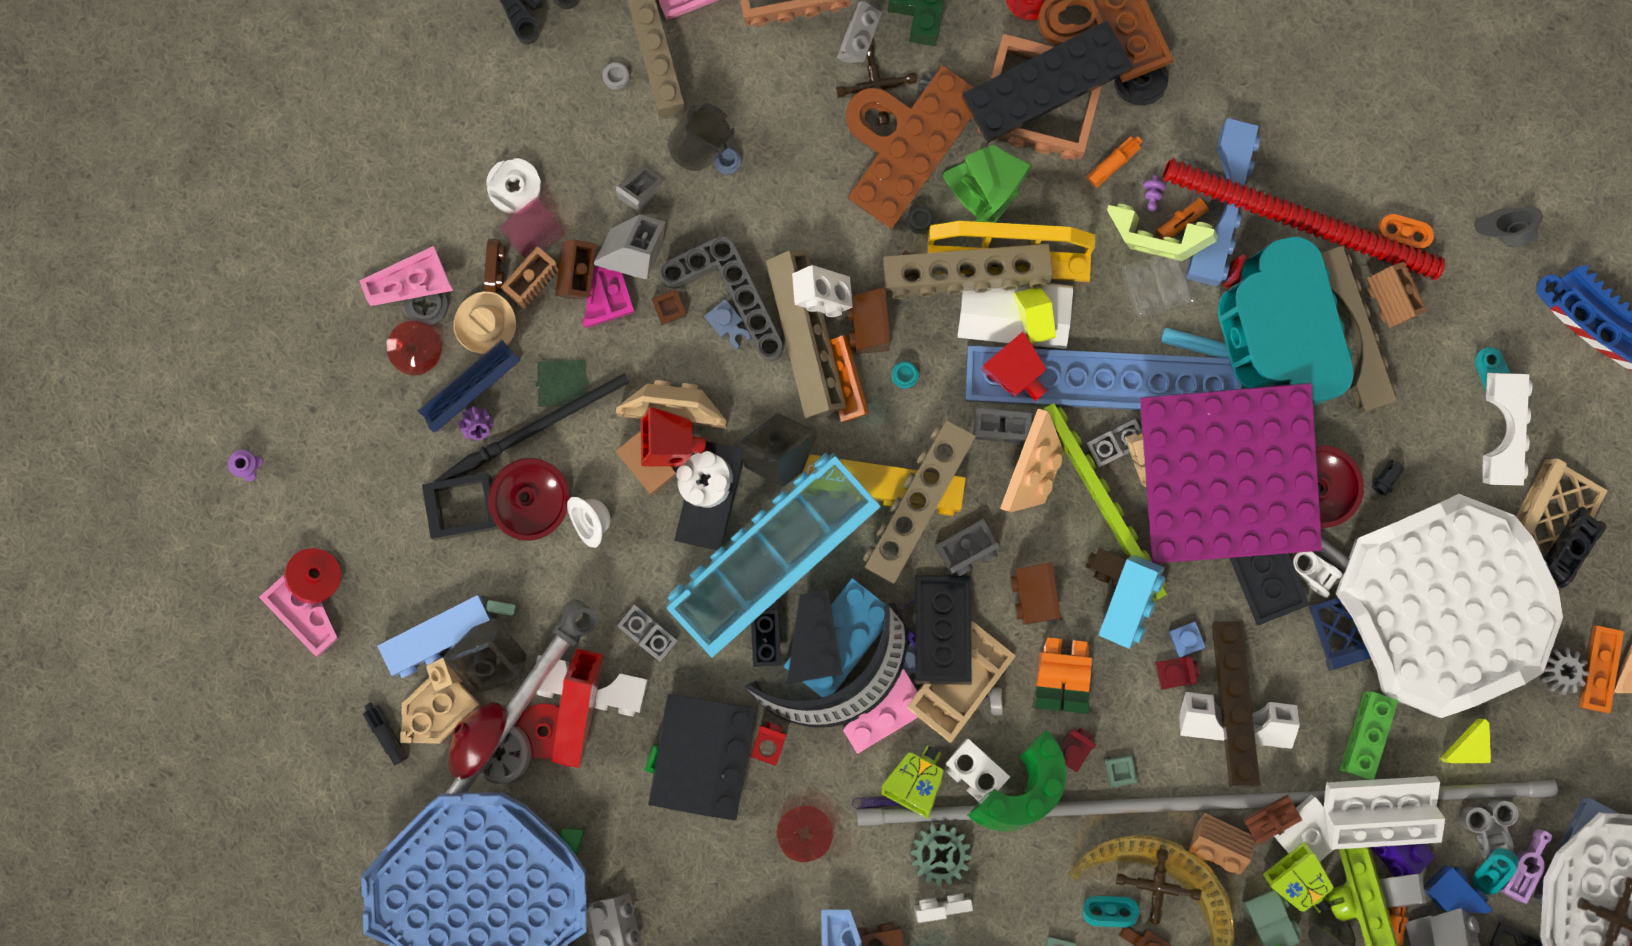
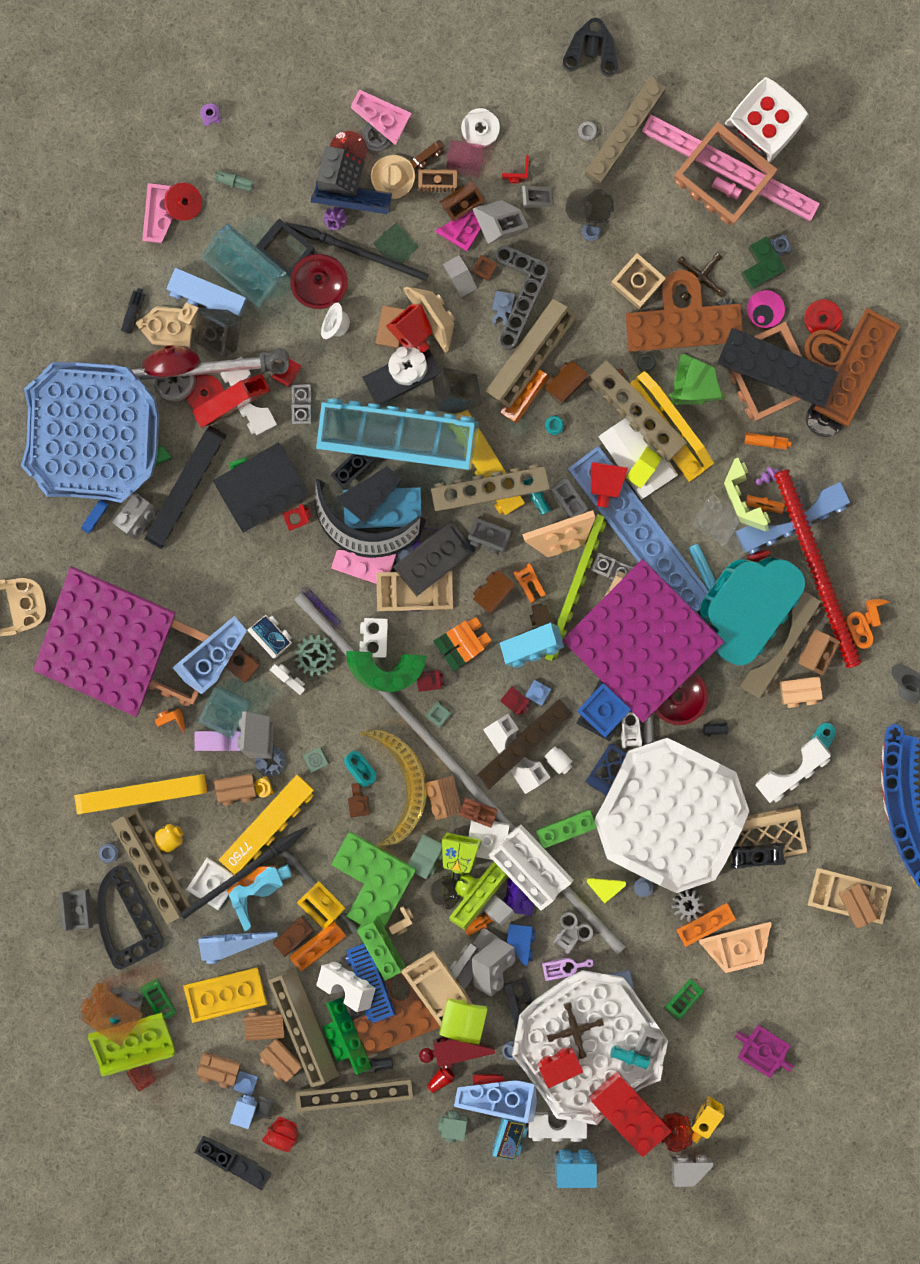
camera: 50 degrees right, 5 degrees up
(339, 500) = (234, 181): none -> sand green axle
(429, 375) = (340, 172): none -> dark grey slope
(439, 567) = (243, 265): none -> clear light blue brick
(502, 608) = (250, 317): sand green tile -> none
(601, 191) = (517, 178): none -> red bracket
(605, 622) = (288, 377): none -> red bracket
(628, 842) = (184, 486): none -> black beam
(655, 341) = (460, 276): none -> light grey slope
(819, 827) = (257, 569): clear red plate -> none
(822, 291) = (560, 343): white brick -> none
(825, 154) = (638, 281): none -> tan brick
(859, 33) = (720, 244): light grey bracket -> none
(878, 888) = (270, 636): none -> slope
(916, 782) = (342, 610): lime torso -> none
(969, 46) = (765, 309): none -> dark pink tile
(971, 459) = (538, 499): none -> teal pin
(996, 701) = (420, 618): light grey tile -> none
(1046, 547) = (531, 577): none -> orange piece
(1158, 886) = (393, 781): dark brown piece -> none
(1271, 581) = (604, 710): none -> blue plate
(1283, 679) = (558, 760): none -> white brick
(1397, 201) = (872, 614): none -> orange plate
(1422, 349) = (801, 690): none -> light nougat brick
(1500, 867) = (549, 951): teal plate -> none
(1503, 705) = (643, 887): none -> sand blue plate

